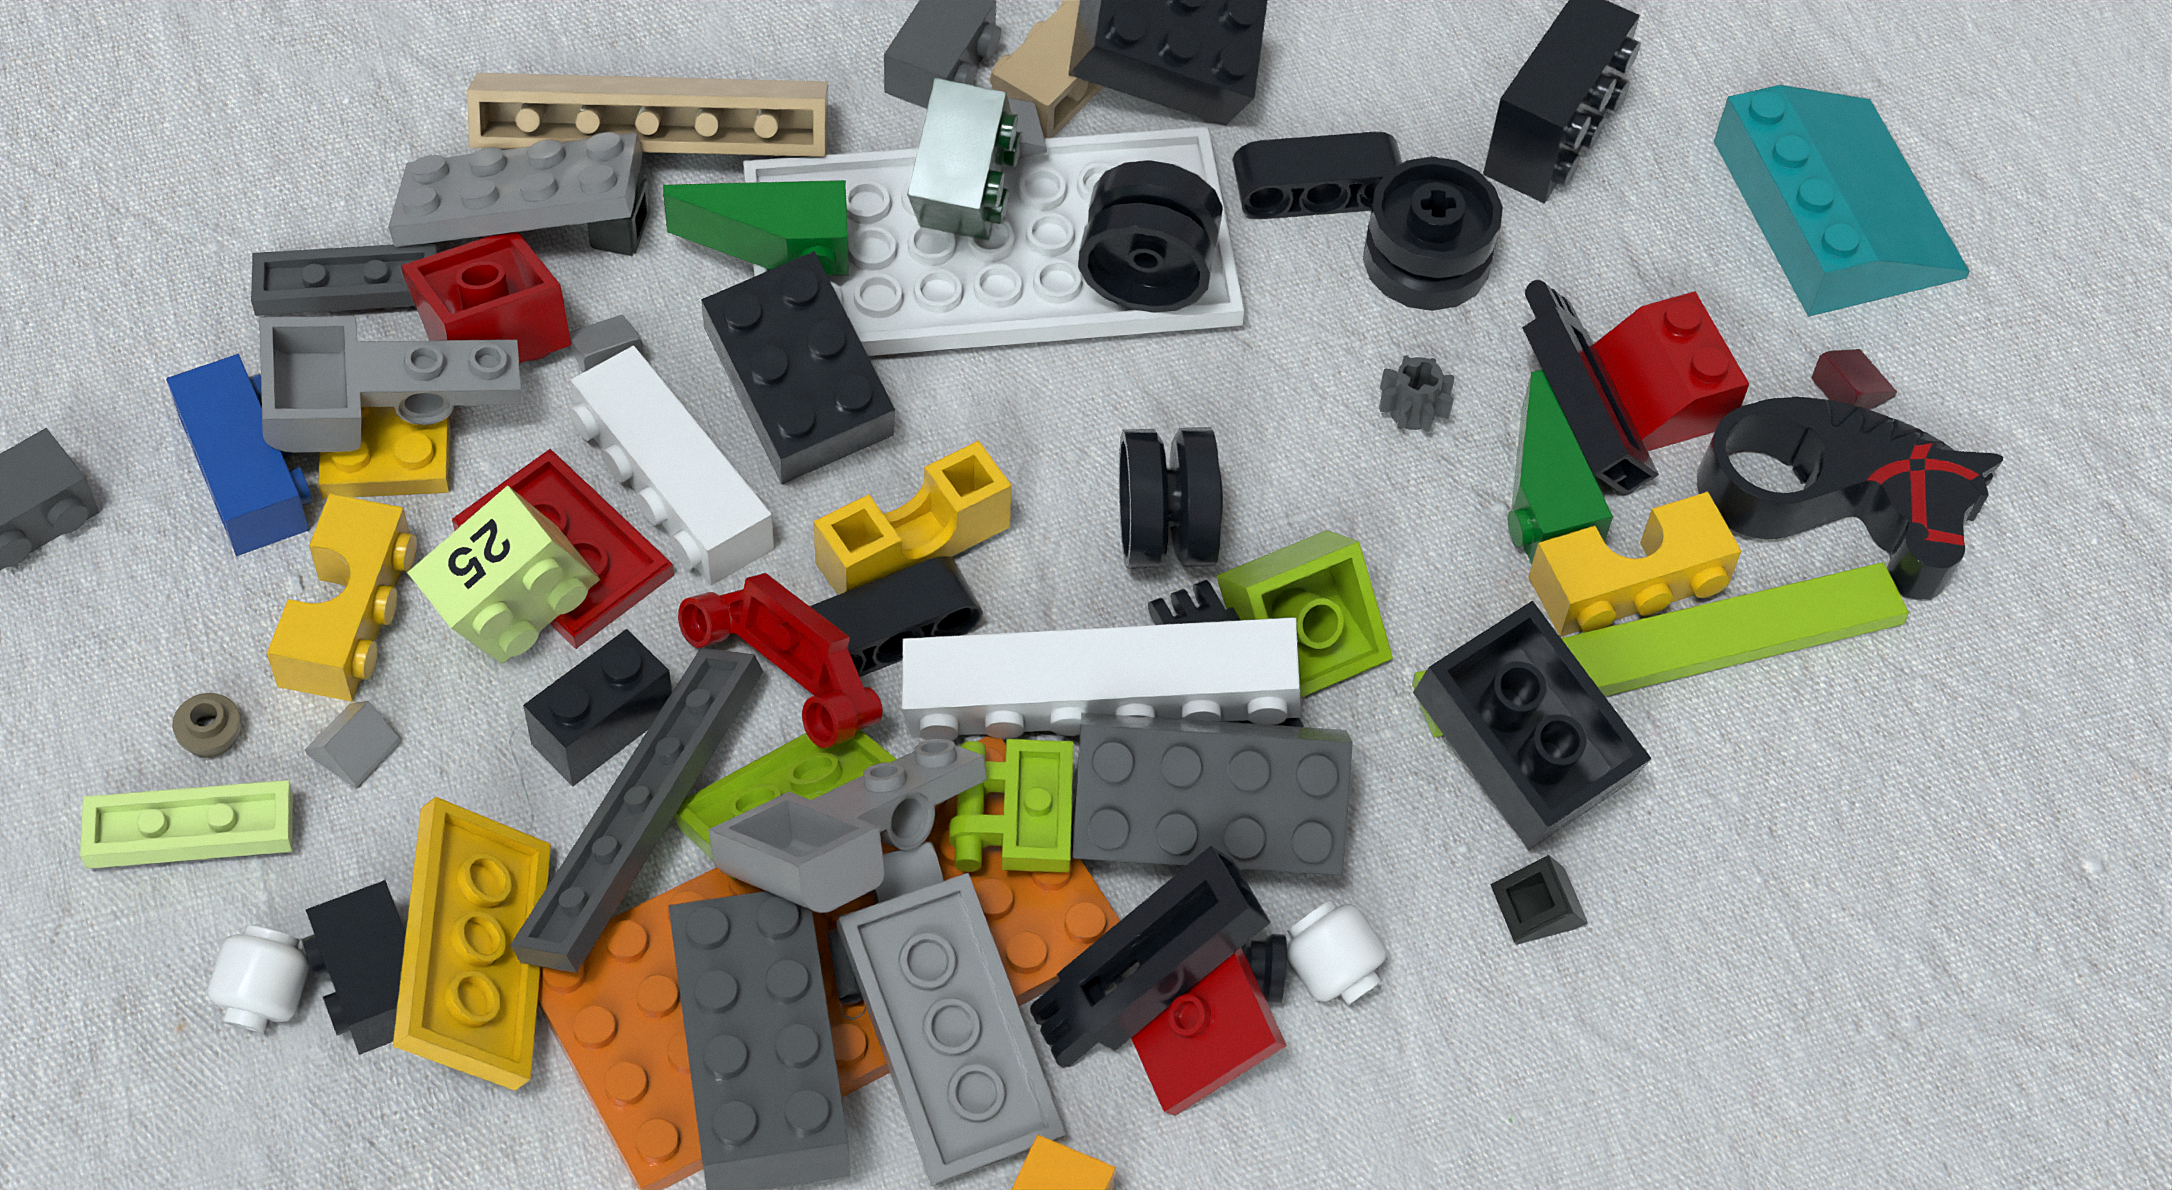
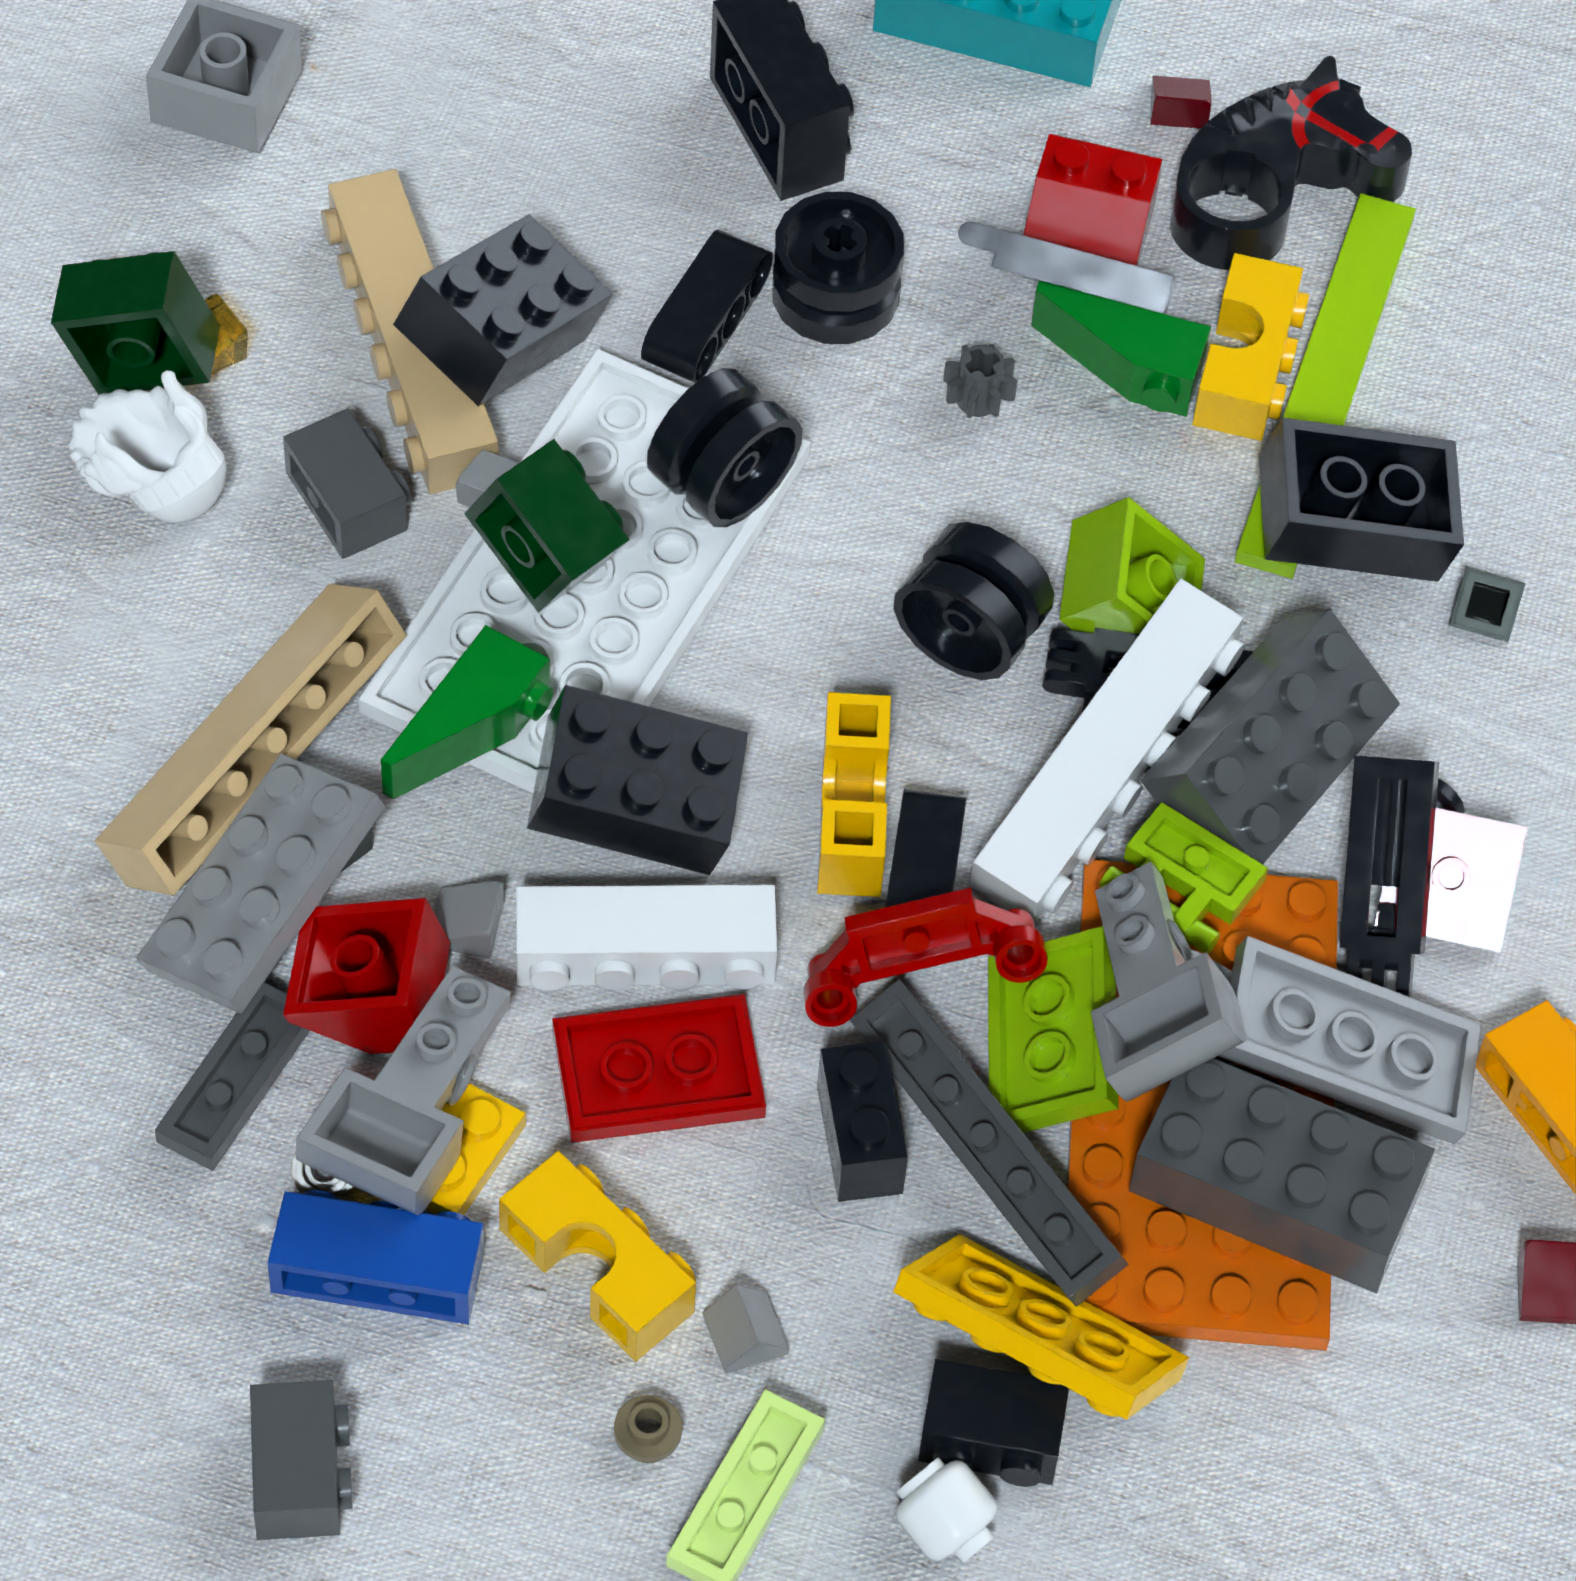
camera: 55 degrees left, 0 degrees up
(504, 576) = (706, 1105): yellowish green brick -> none
(1336, 952) = (1461, 747): white head -> none

